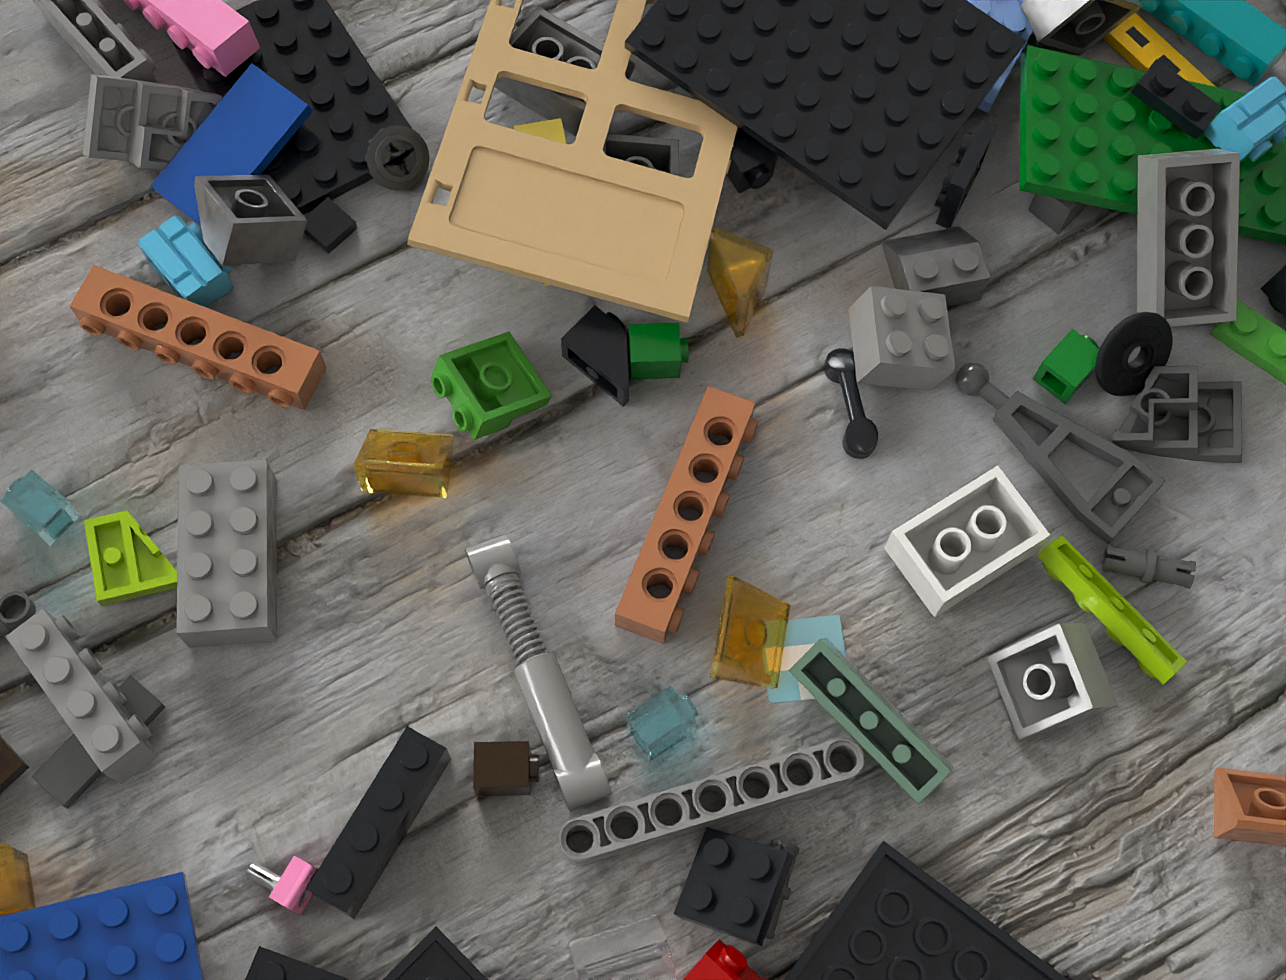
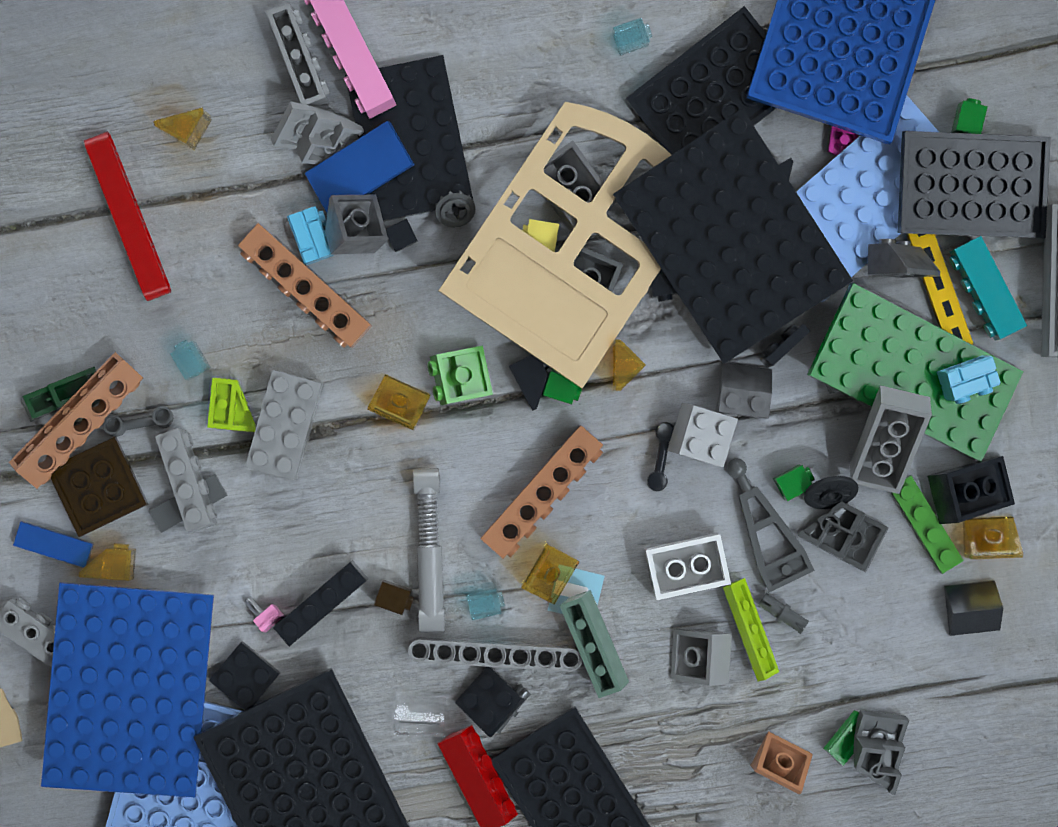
camera: 25 degrees right, 20 degrees up
(1176, 99) = (928, 347): black plate -> none

